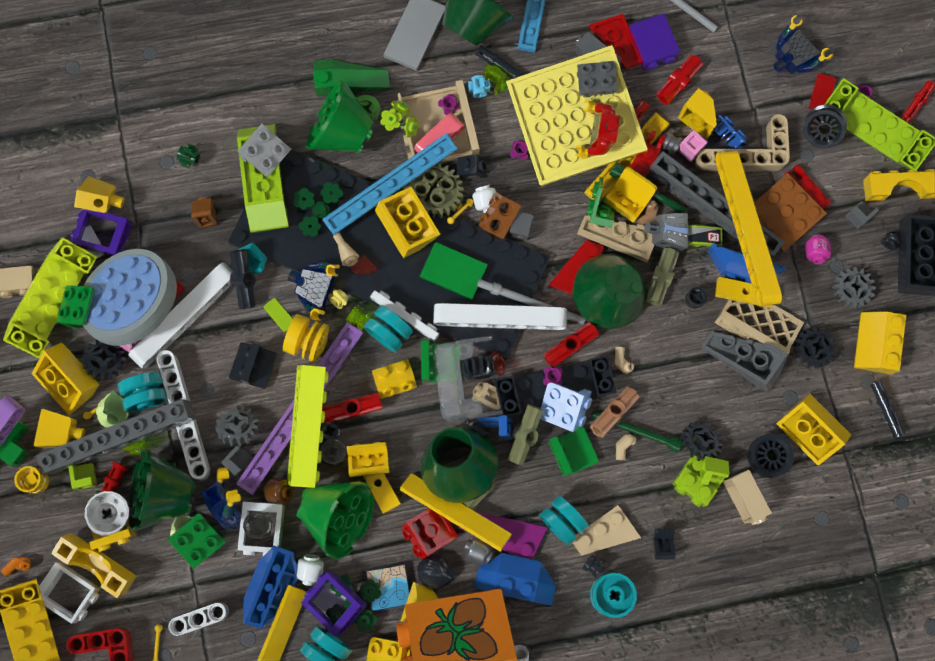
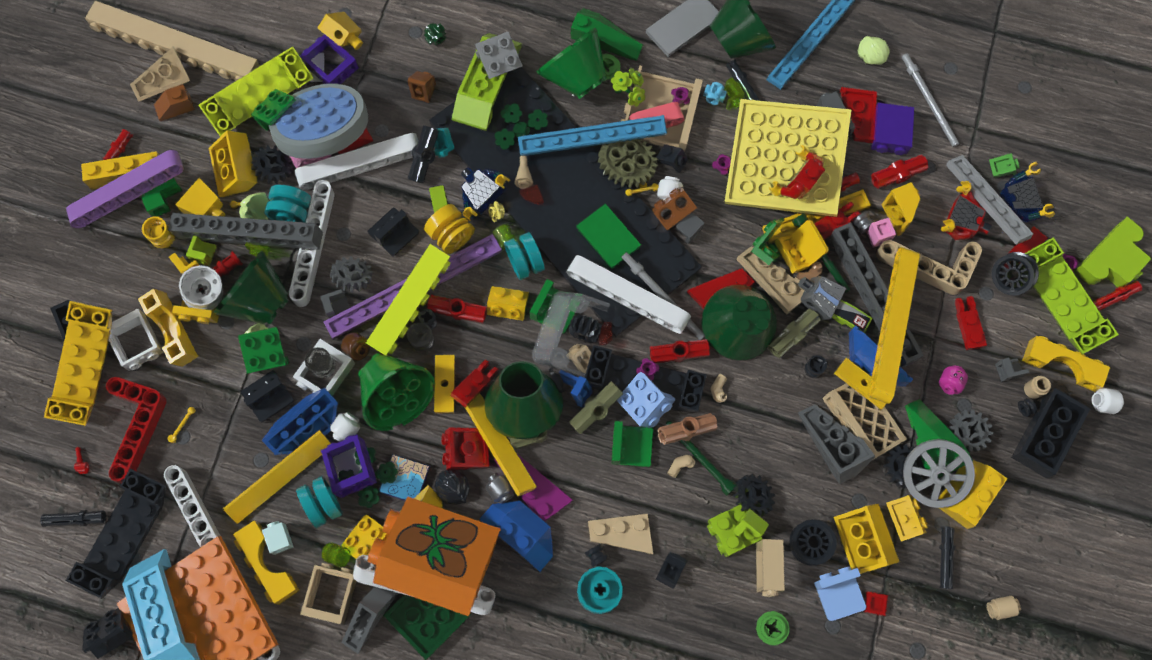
camera: 30 degrees right, 5 degrees down
(16, 563) = (107, 295): orange arm -> none
(72, 498) = (181, 263): none -> yellow bracket
(189, 619) = (220, 416): white beam -> none
(221, 579) = (267, 396): none -> black bracket
(222, 503) = (300, 330): clear blue torso -> none
(367, 459) = (446, 357): yellow bracket -> none
(405, 471) = (473, 384): none -> red hinge
(407, 221) = (589, 173): yellow slope -> none
(413, 319) = (549, 259): white plate -> none
(565, 519) = (592, 499): teal wheel -> none
(597, 78) = (822, 131): dark grey hinge -> none
(728, 124) = (919, 233): blue hinge -> none
(756, 93) = (965, 215): none -> torso
(767, 29) = (1004, 165): none -> bright green bracket
(770, 68) = (990, 200): none -> light grey plate
(780, 541) = (781, 624): none -> bright green gear
(788, 211) = (941, 332): dark orange plate -> none
(815, 487) = (840, 593): none -> light blue bracket
(836, 315) = (930, 427): none -> green wedge
(838, 392) = (907, 518): none -> yellow bracket
(845, 339) = (938, 468): none -> light grey wheel
(848, 480) = (876, 603): none -> red tile
(891, 219) = (1037, 387): none -> tan brick
(900, 66) = (1116, 256): none -> lime brick

